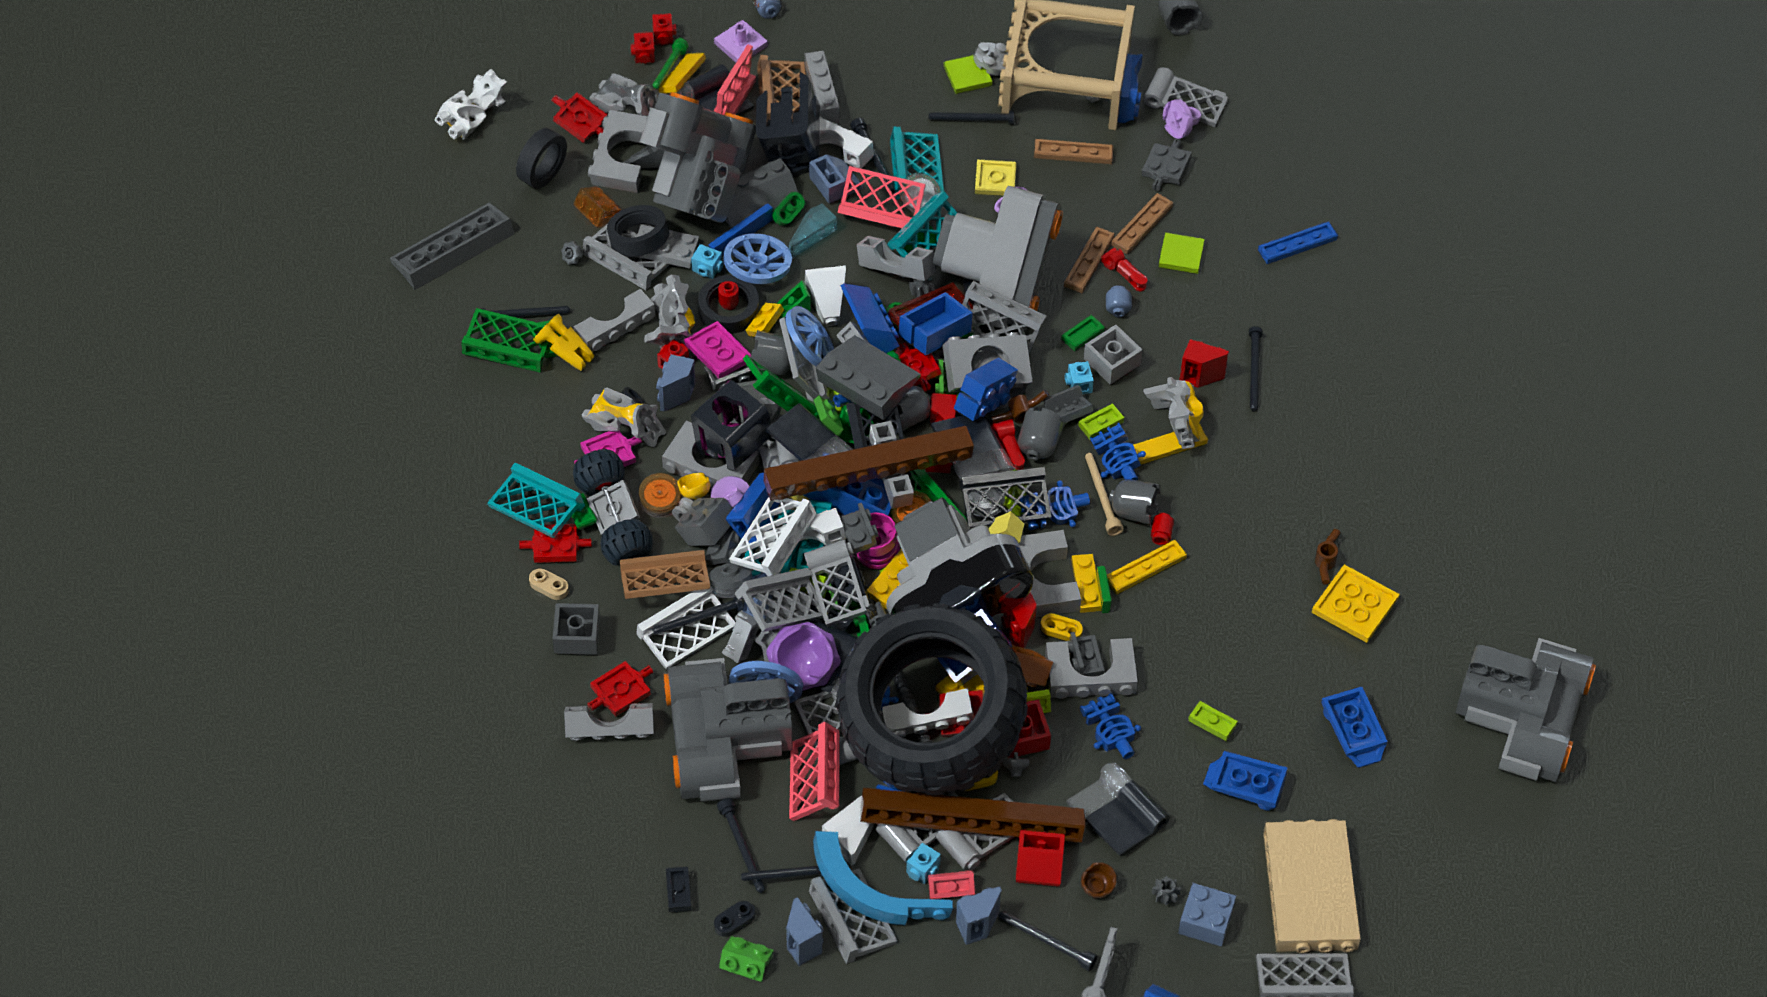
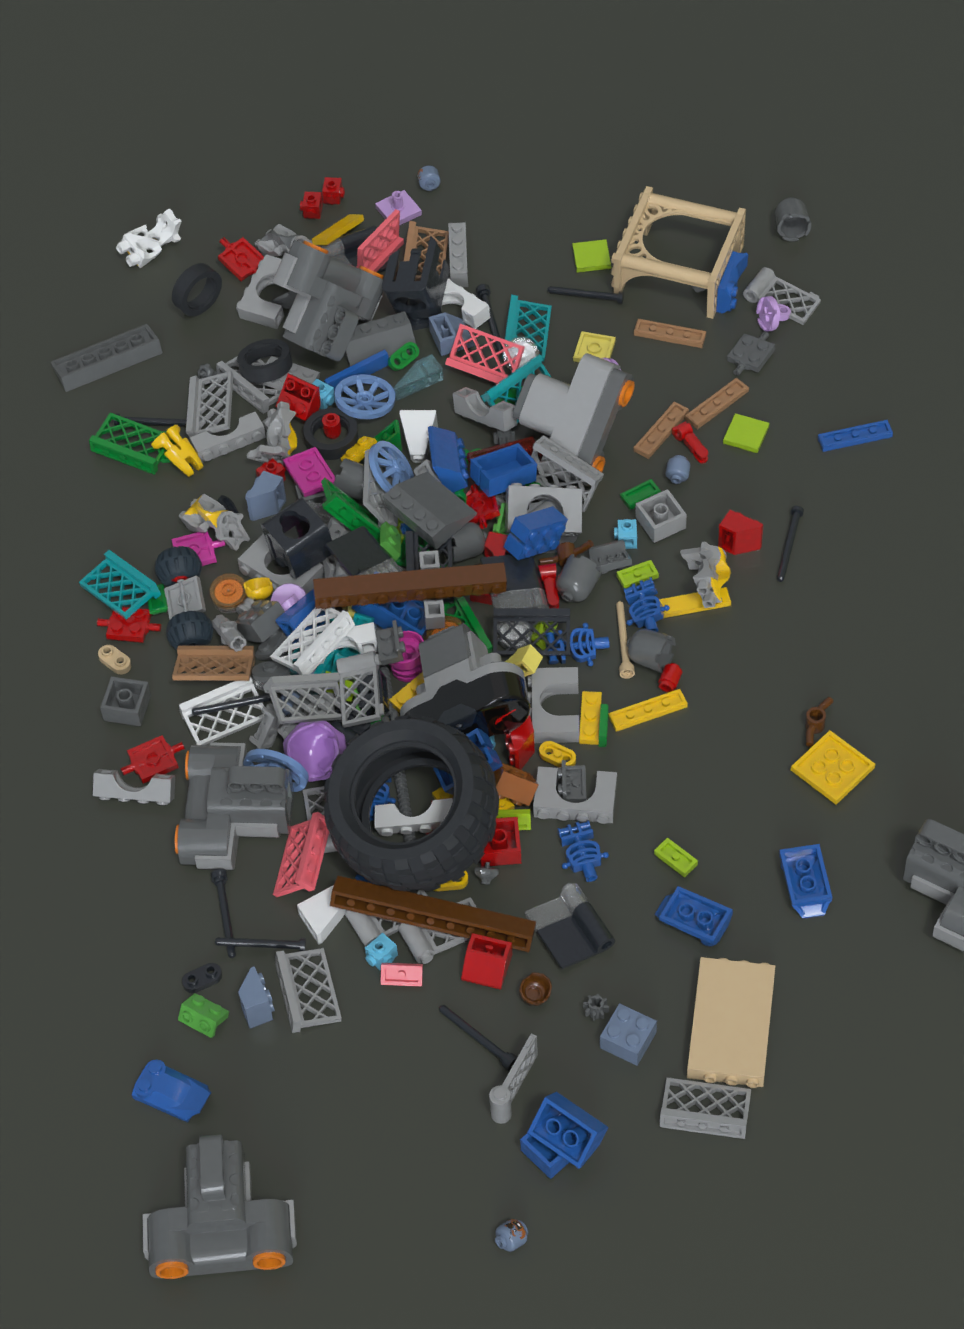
camera: 15 degrees right, 0 degrees up
(571, 294) = (197, 407): none -> light grey fence
(595, 205) = (236, 335): clear orange bracket -> none
(673, 539) = (229, 633): none -> light grey piece
(678, 889) = (158, 944): black plate -> none
(679, 47) = (343, 208): green piece -> none
(689, 265) = (301, 395): none -> red slope
(862, 897) = (322, 979): dark azure arch -> none
(977, 914) = (418, 1004): sand blue slope -> none
(984, 57) = (608, 241): light grey plate -> none

